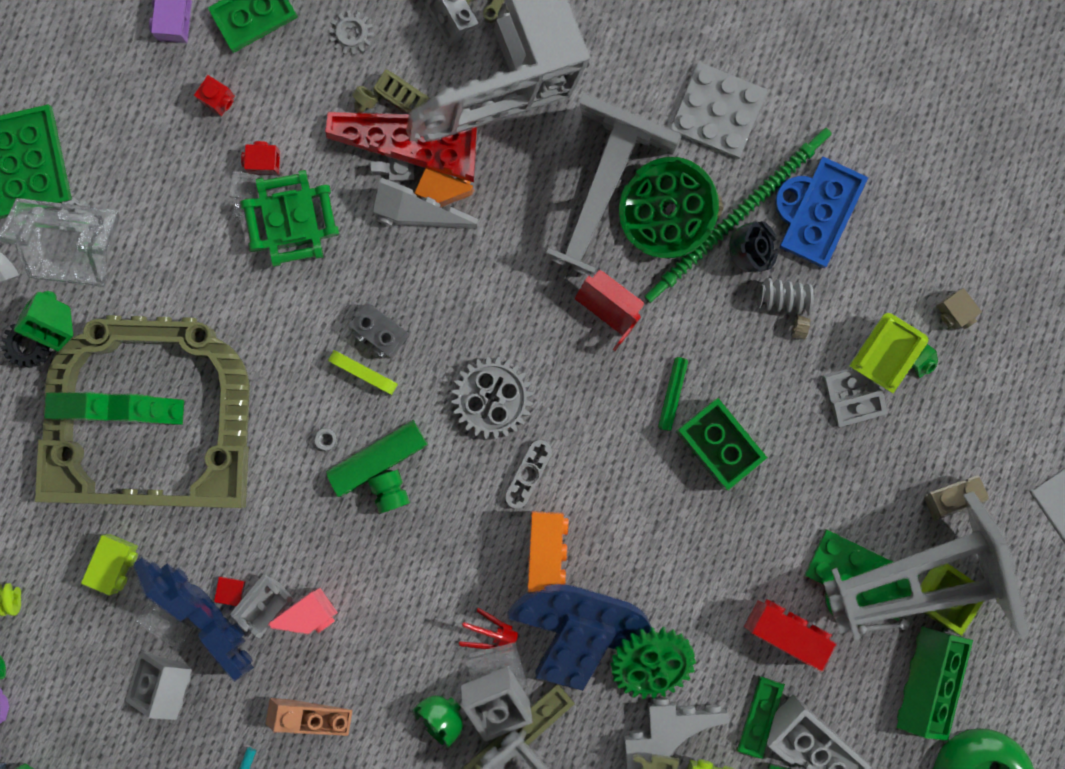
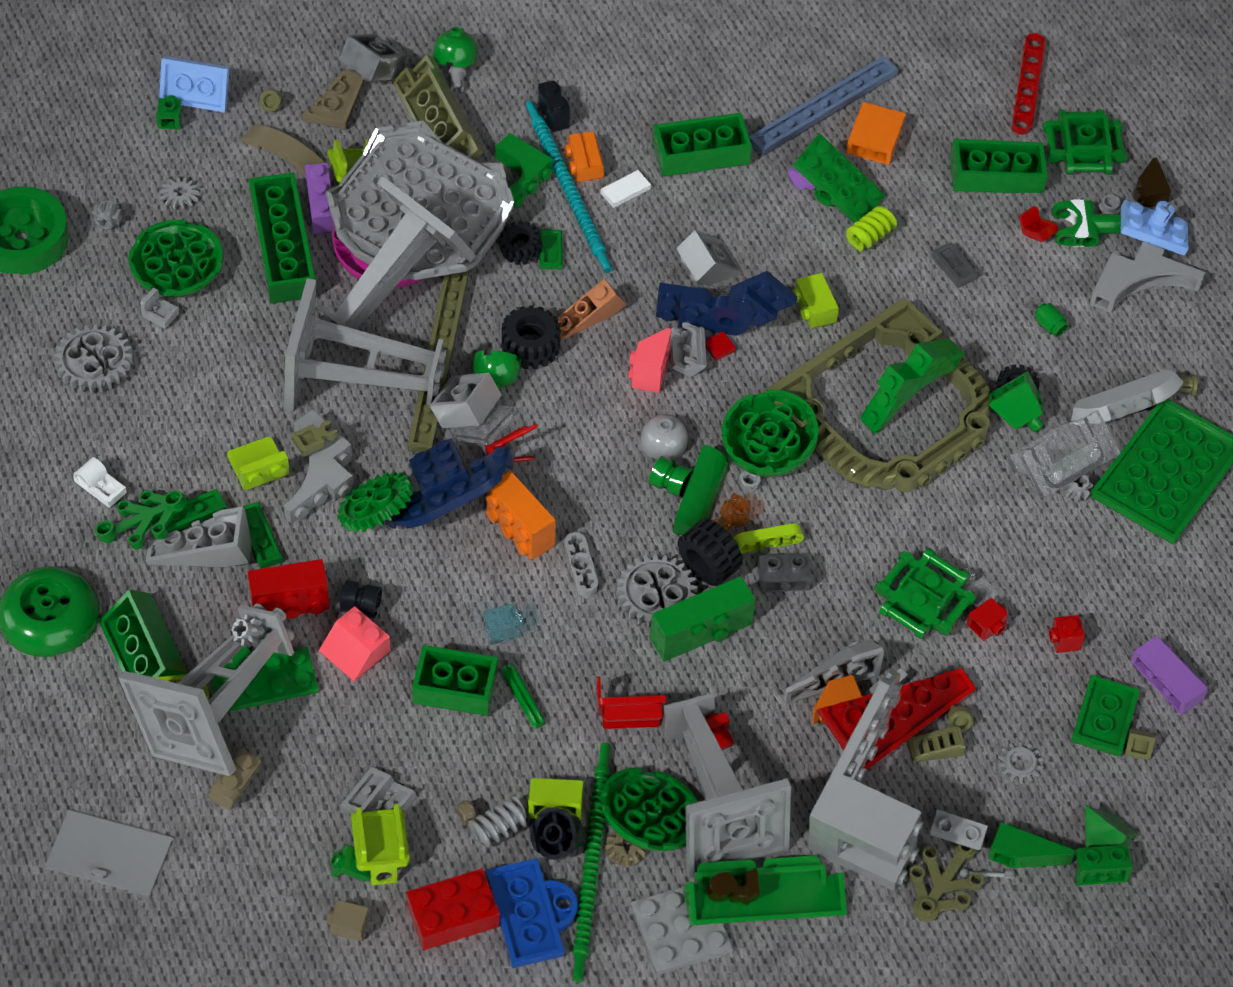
camera: 135 degrees right, 30 degrees down
(284, 489) = (761, 420): none -> green brick
(358, 536) = (664, 437): none -> light grey cylinder
(375, 750) = (531, 321): none -> black tyre
(390, 413) = (729, 512): none -> clear orange plate
(426, 388) = (710, 552): none -> black tyre
(485, 335) = (702, 619): none -> green brick
(558, 236) = (719, 726): none -> red bracket
(640, 465) = (502, 624): none -> clear light blue brick
(643, 83) = (787, 891): none -> green slope
(674, 98) = (724, 886): none -> dark brown leg
(728, 280) = (555, 793): none -> lime brick
(734, 585) = (364, 599): none -> black wheel
(768, 545) = (355, 644): none -> coral slope
(871, 607) = (247, 630): none -> light grey gear
(878, 254) = (452, 909): none -> red brick

